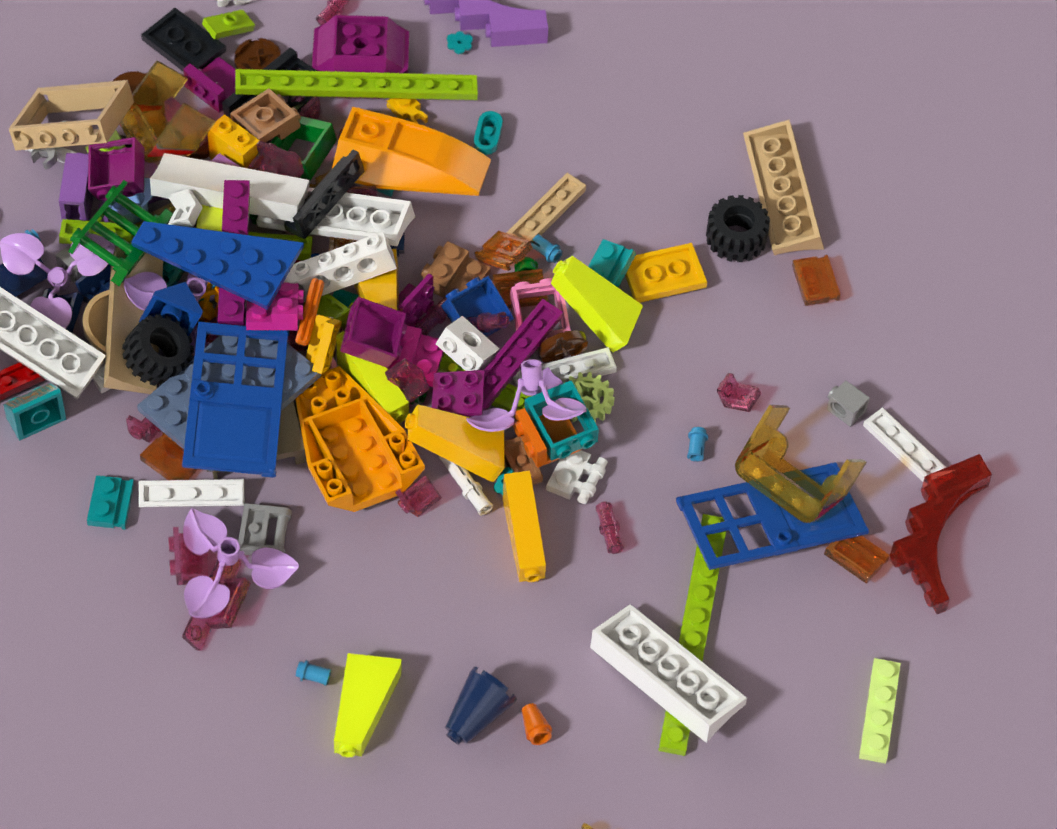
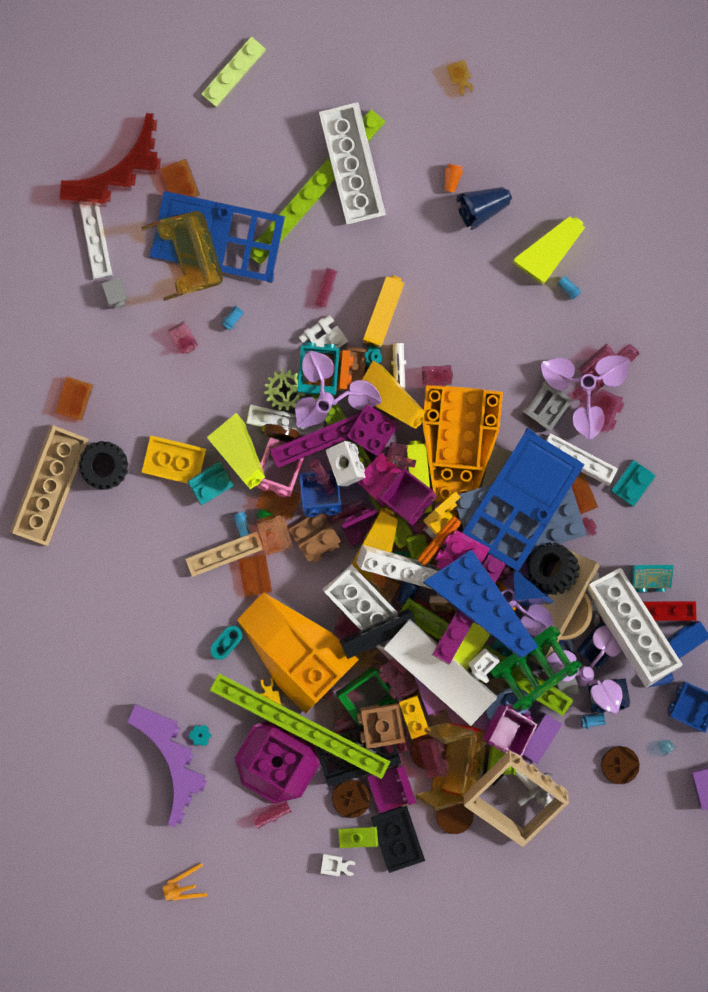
camera: 150 degrees left, 30 degrees up
(497, 208) = (255, 575): none -> clear orange plate

